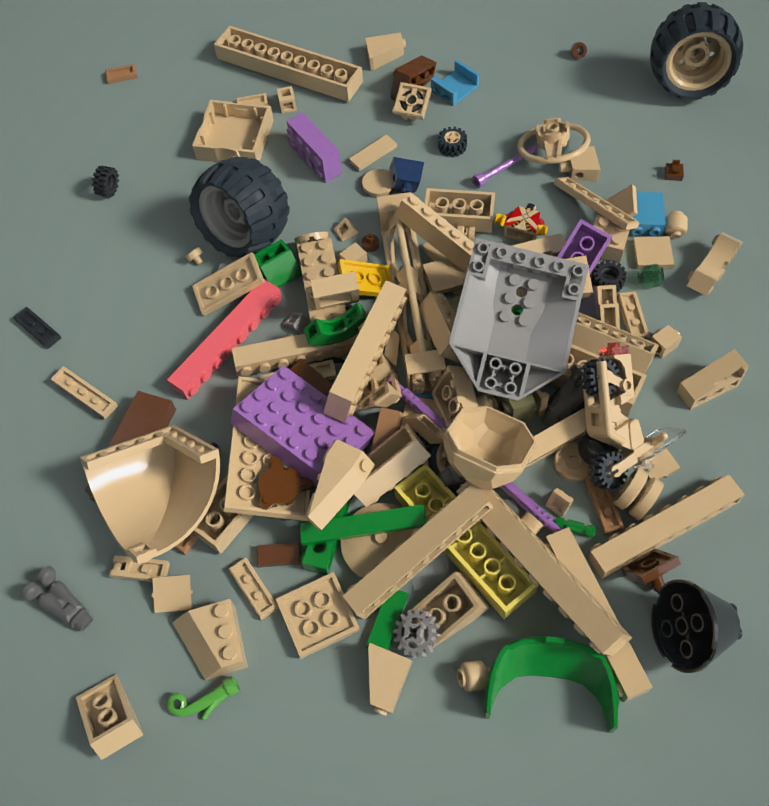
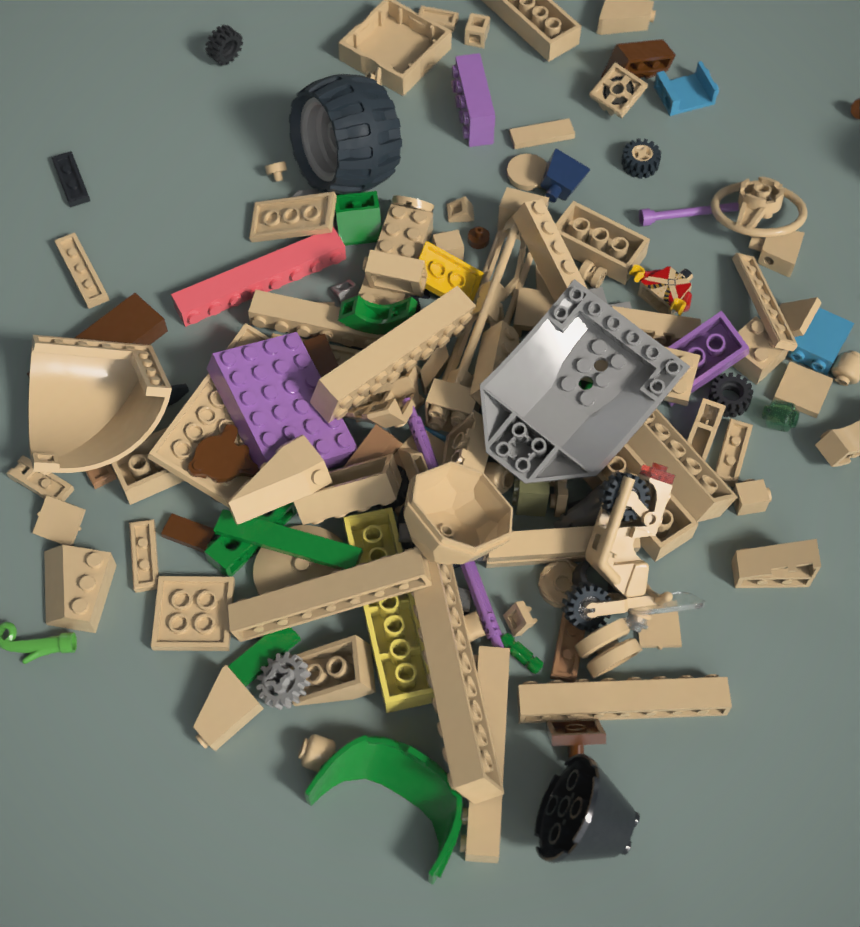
camera: 20 degrees right, 0 degrees up
(433, 574) = (336, 626): clear piece -> none

